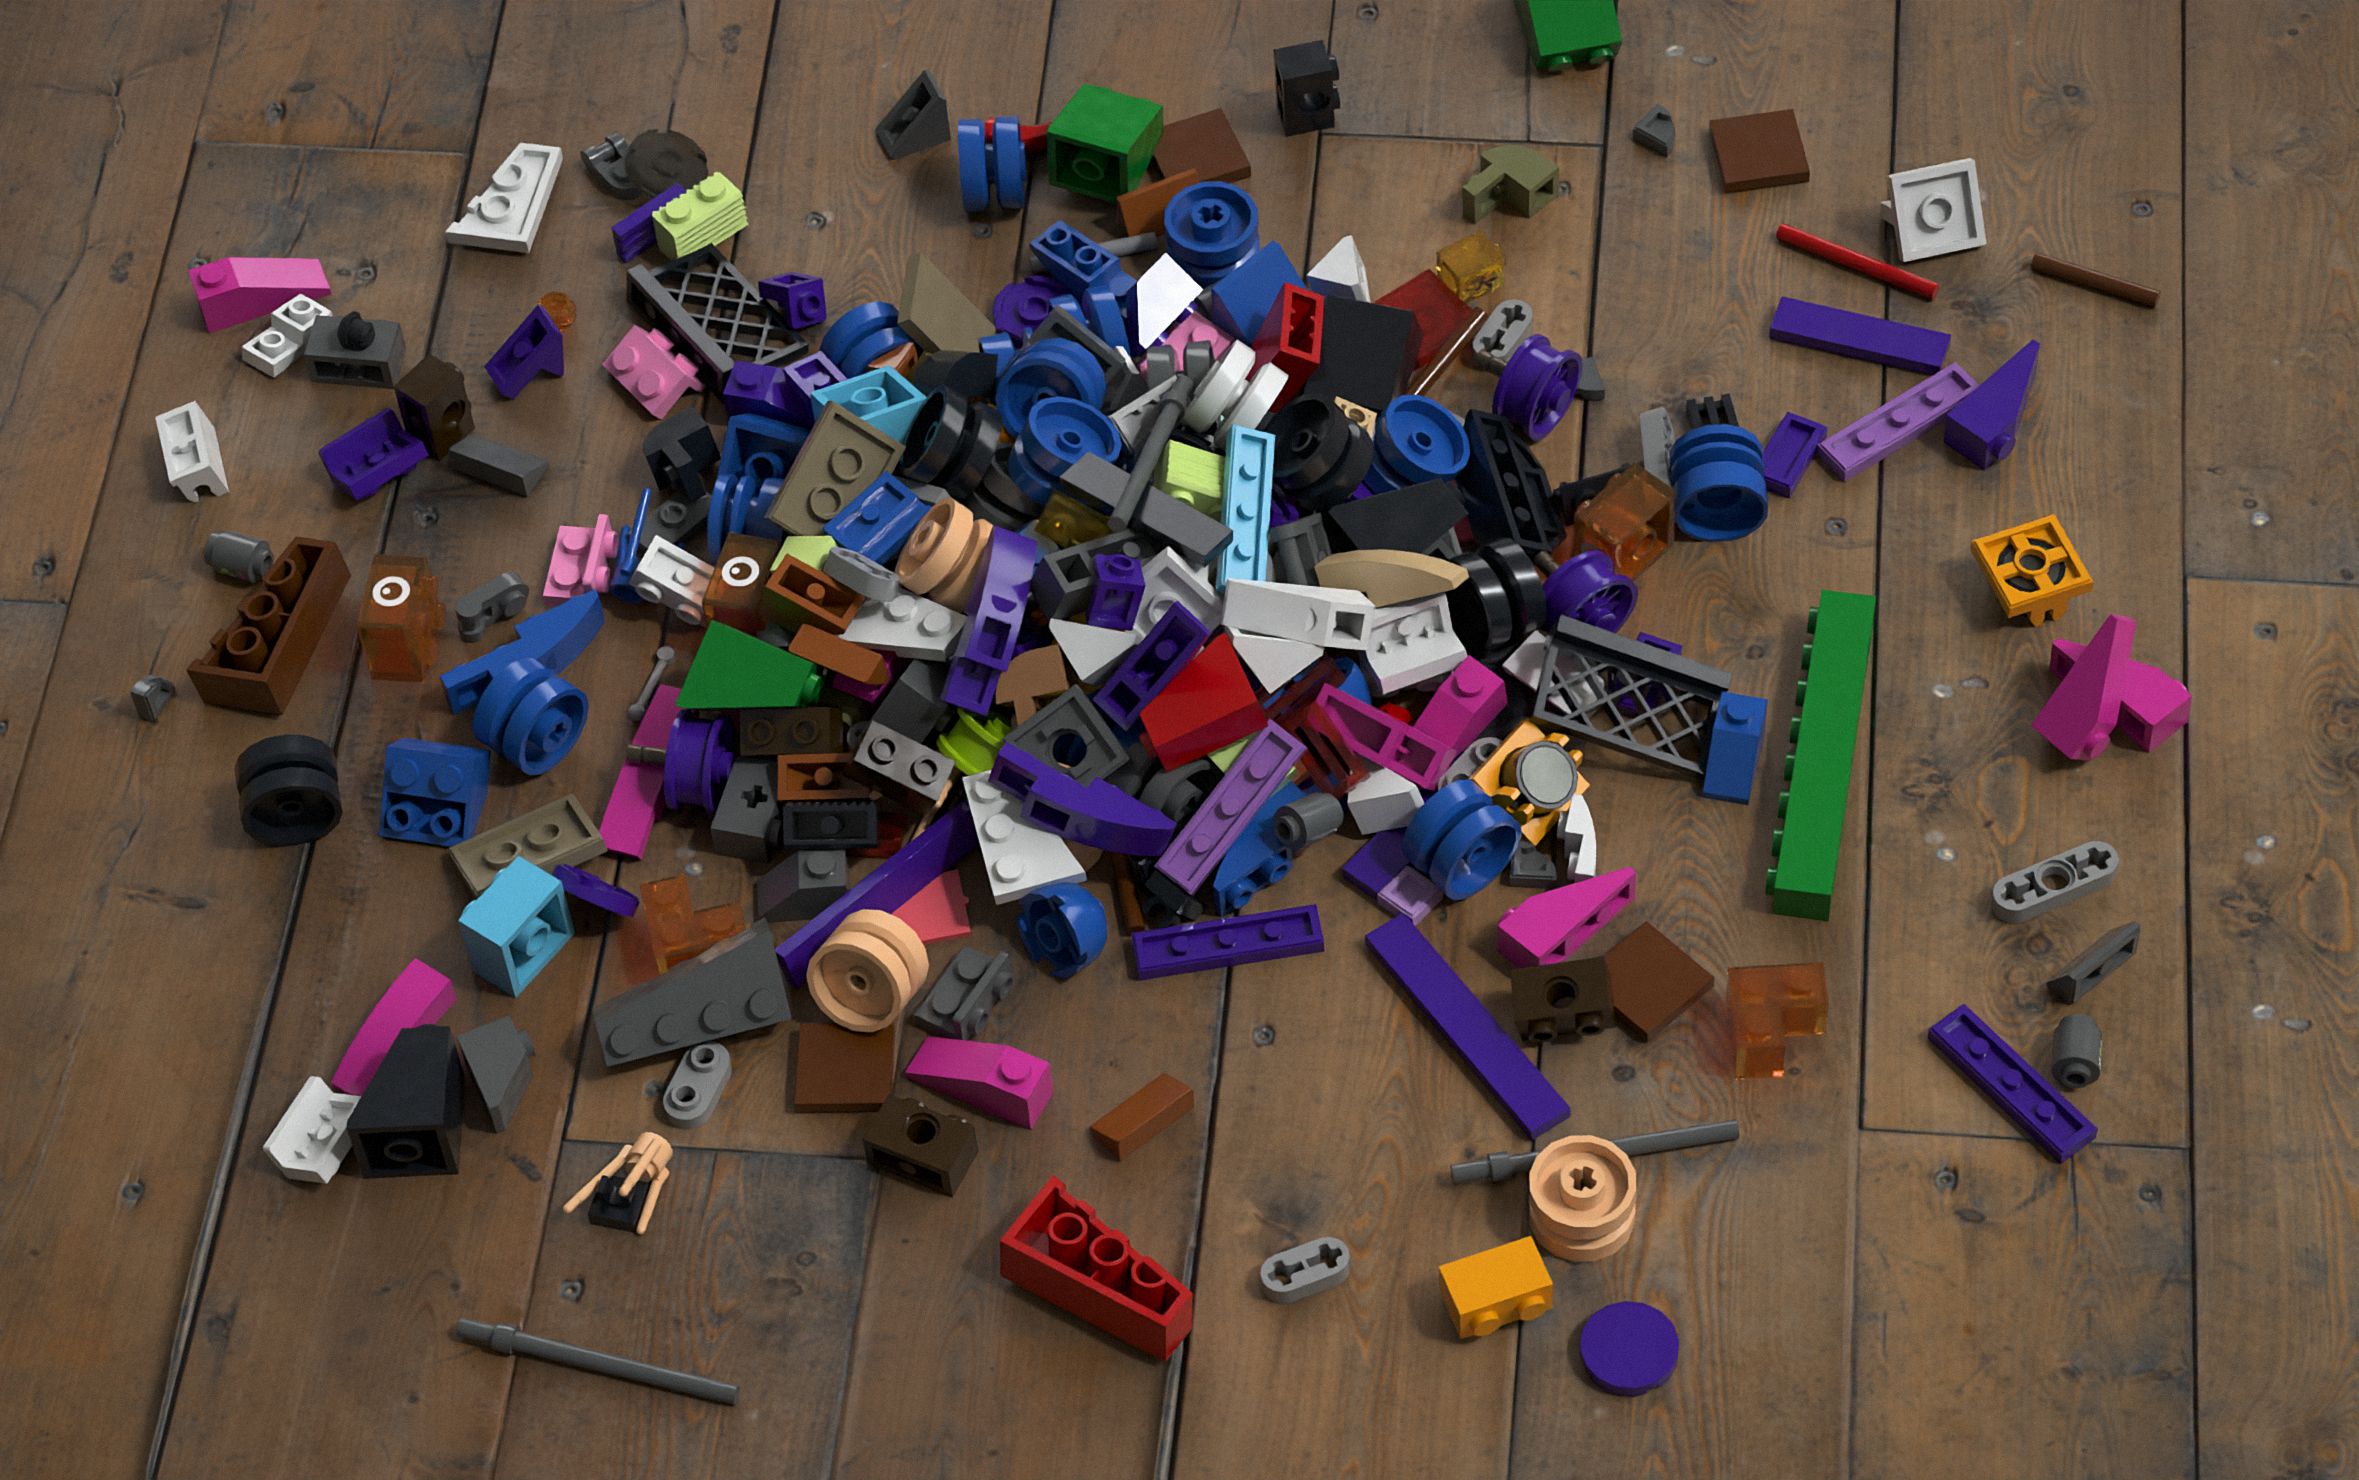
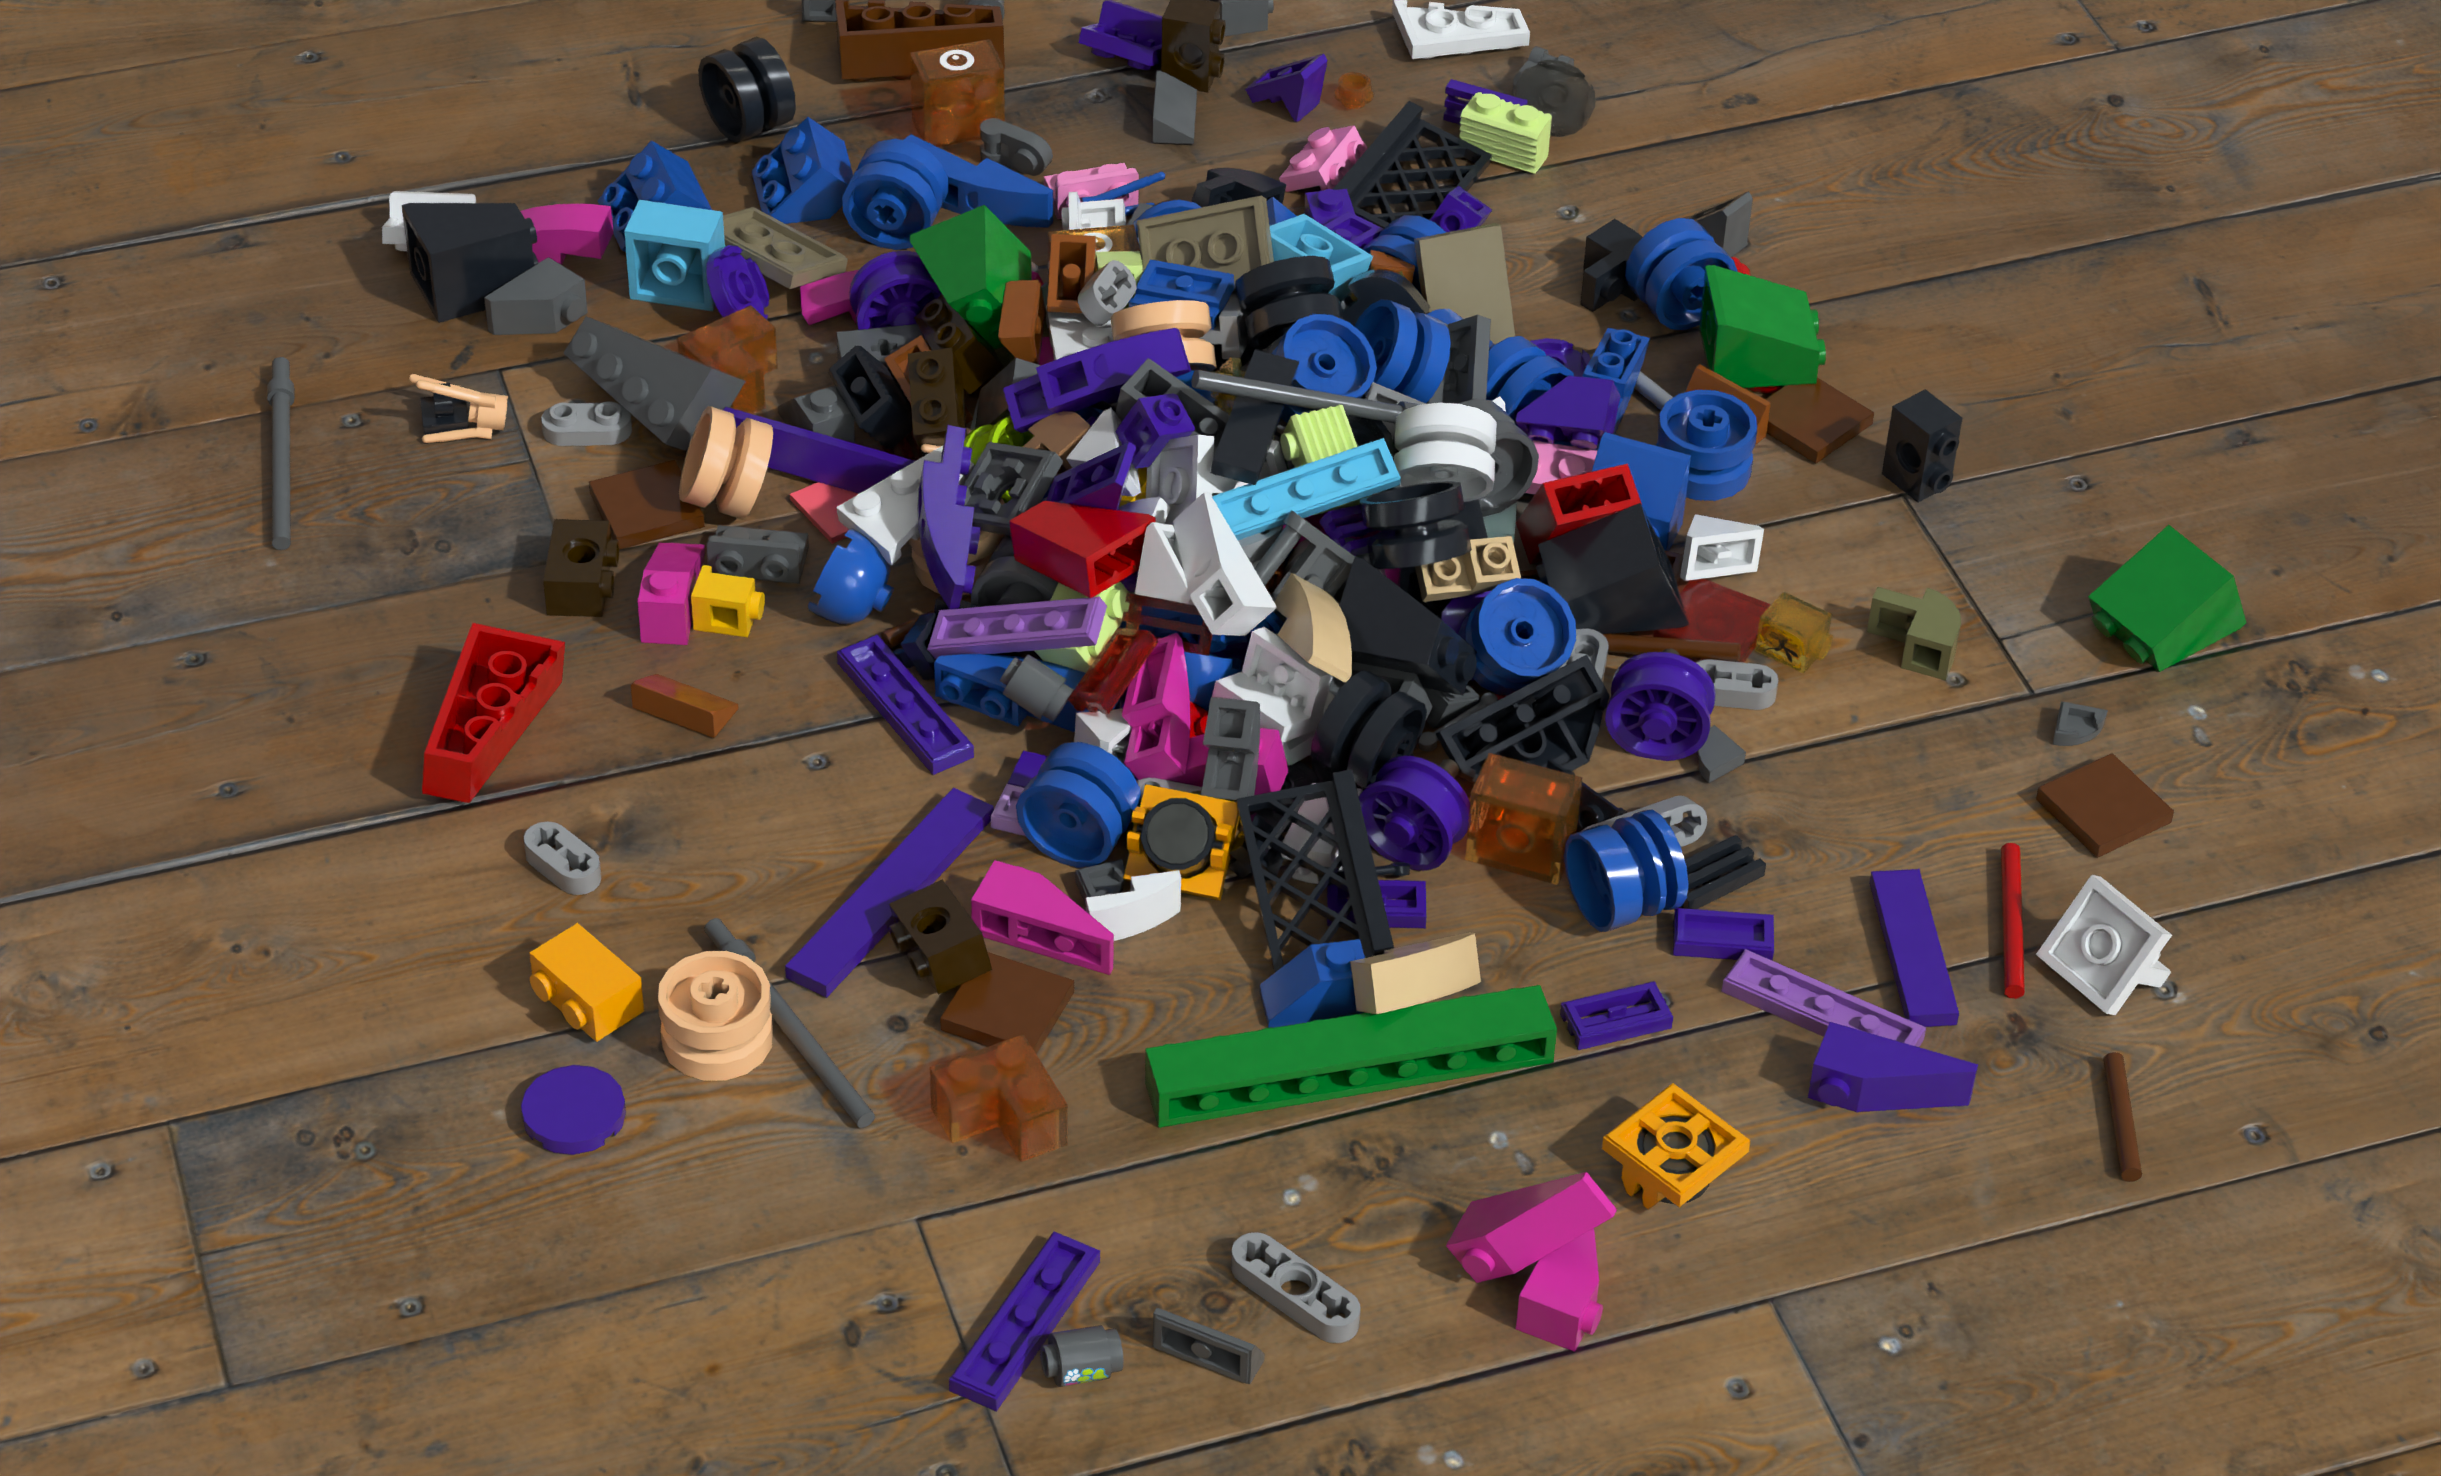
camera: 60 degrees right, 10 degrees down
(394, 924) = (654, 177): none -> blue slope
(926, 204) = (1606, 264): none -> black brick
(1036, 1031) = (725, 603): none -> yellow brick
(1484, 696) = (1233, 746): none -> dark grey slope
(1771, 673) = (1415, 973): none -> tan slope
(1848, 527) = (1620, 1021): none -> dark purple tile

